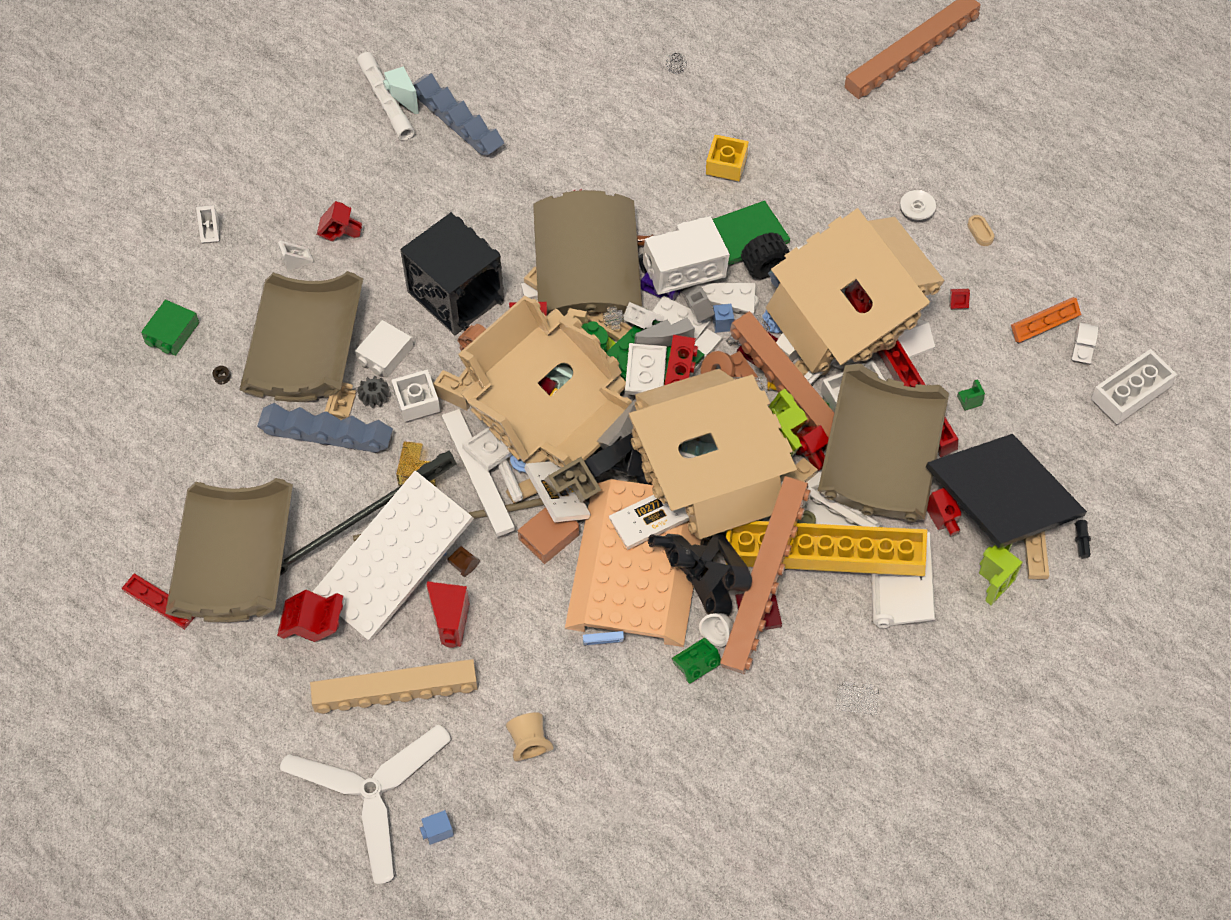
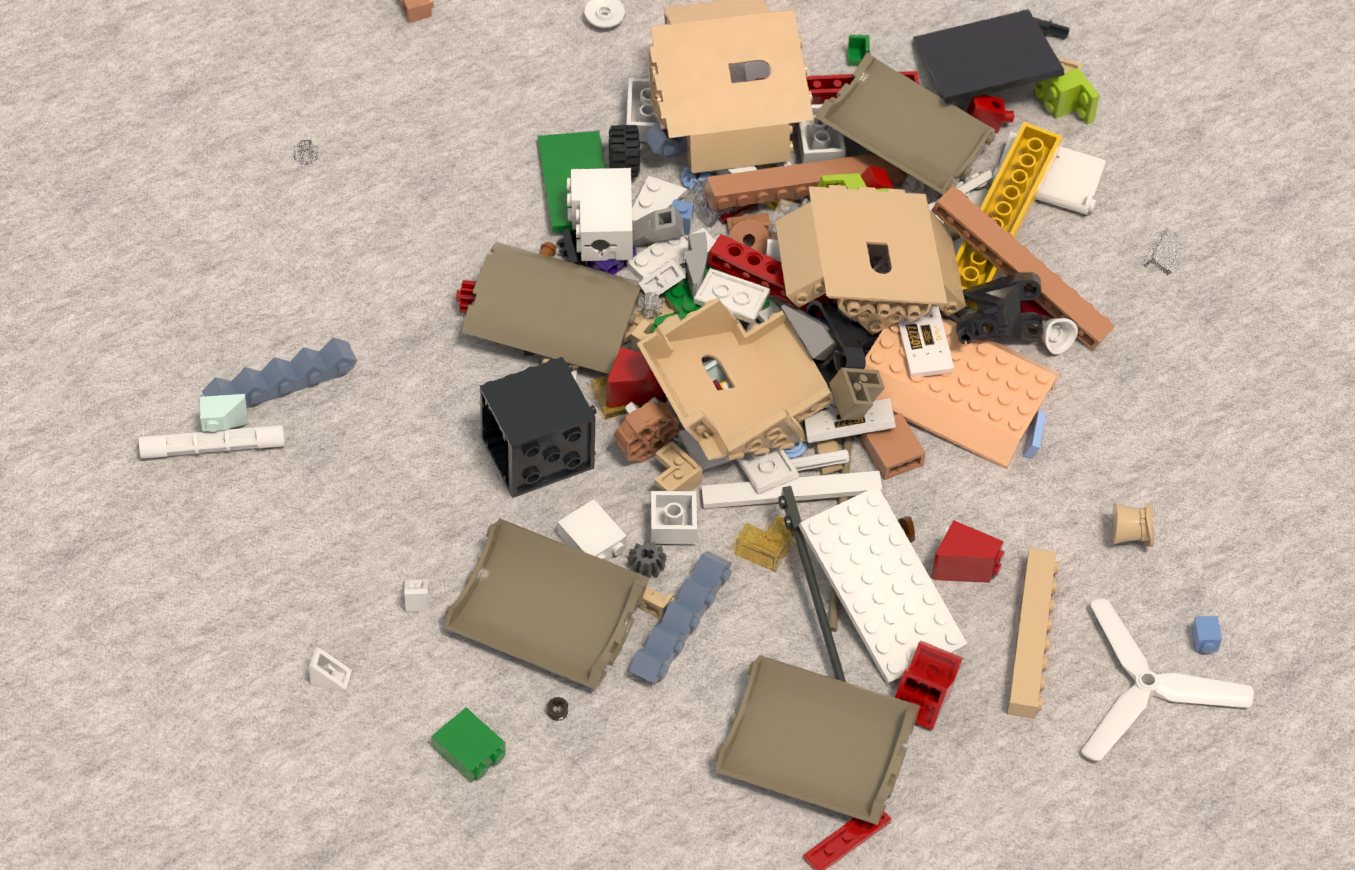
camera: 75 degrees left, 5 degrees down
(337, 222) = (392, 533): red brick -> none
(697, 660) = (1082, 364): green bracket -> none
(727, 157) = (469, 146): yellow brick -> none

